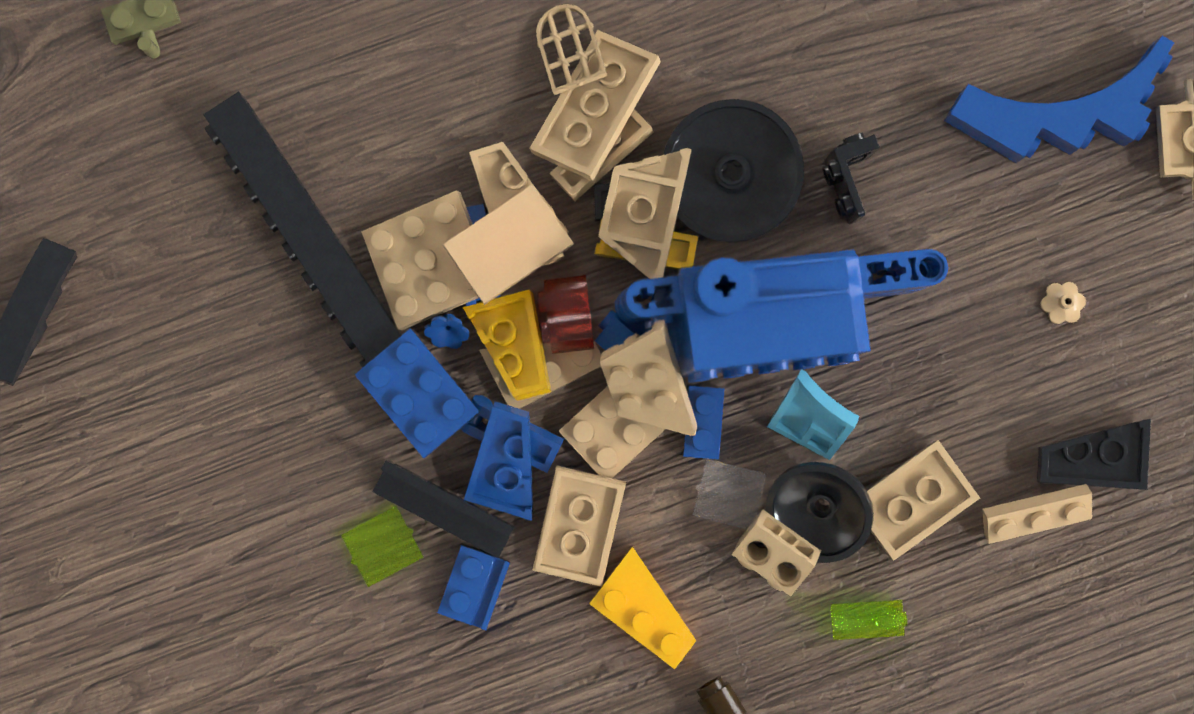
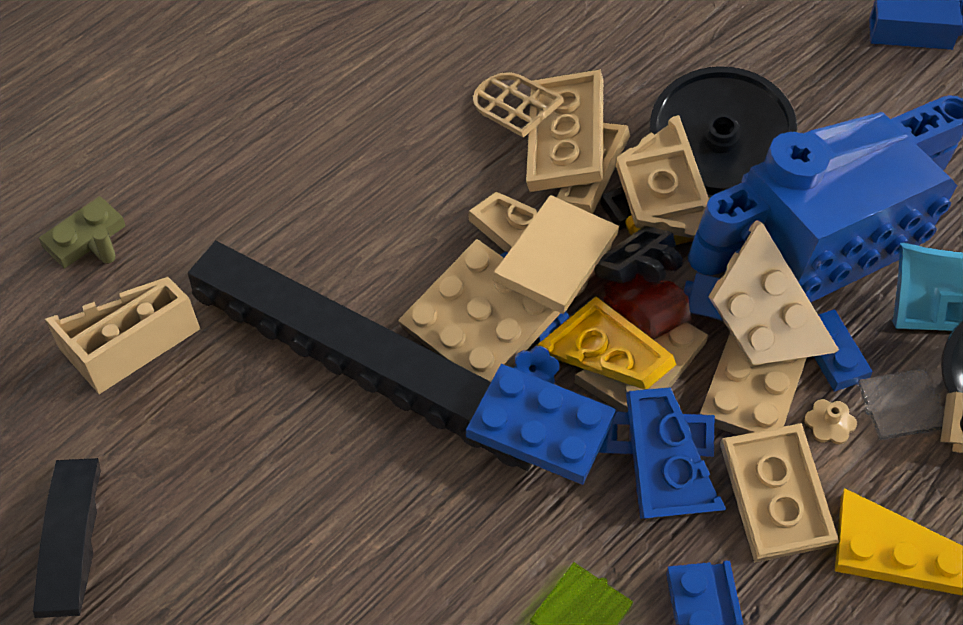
camera: 25 degrees left, 30 degrees down
(130, 148) = (125, 334): none -> tan wedge
(443, 508) = (627, 534): black fence -> none
(577, 271) = (645, 252): none -> black hinge
(652, 486) = (830, 421): none -> tan plant
(837, 173) = (823, 93): black bracket -> none

